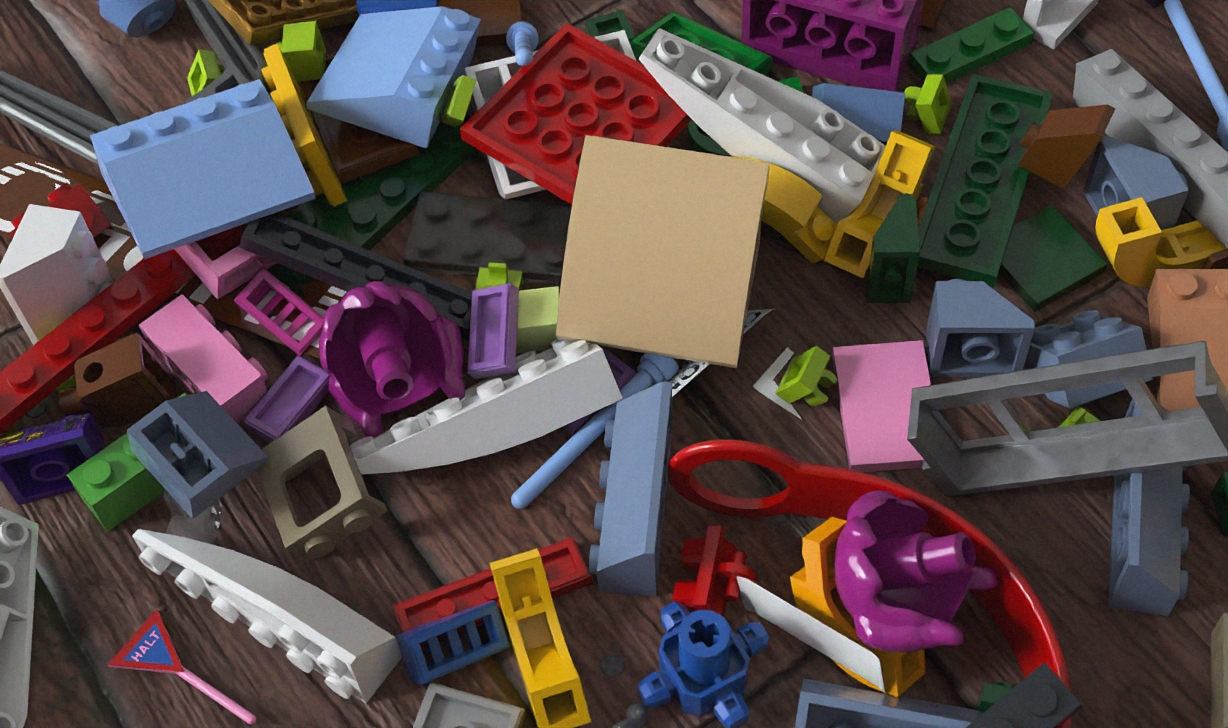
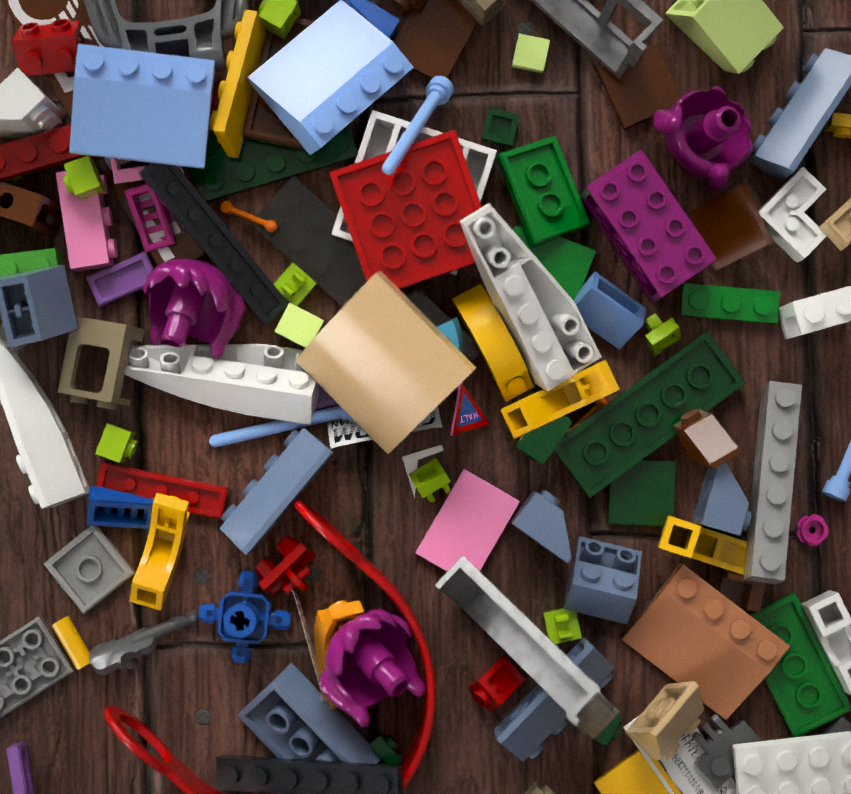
camera: 30 degrees right, 30 degrees up
(176, 298) = (83, 178): none -> lime plate
(399, 568) = (117, 443): none -> lime plate
(428, 239) = (228, 208): none -> orange hinge
(458, 100) = (346, 142): lime tile -> none
(493, 331) = (263, 326): medium lavender tile -> none
(792, 293) = (467, 413): none -> piece
(1067, 547) = (496, 684): none -> red bracket

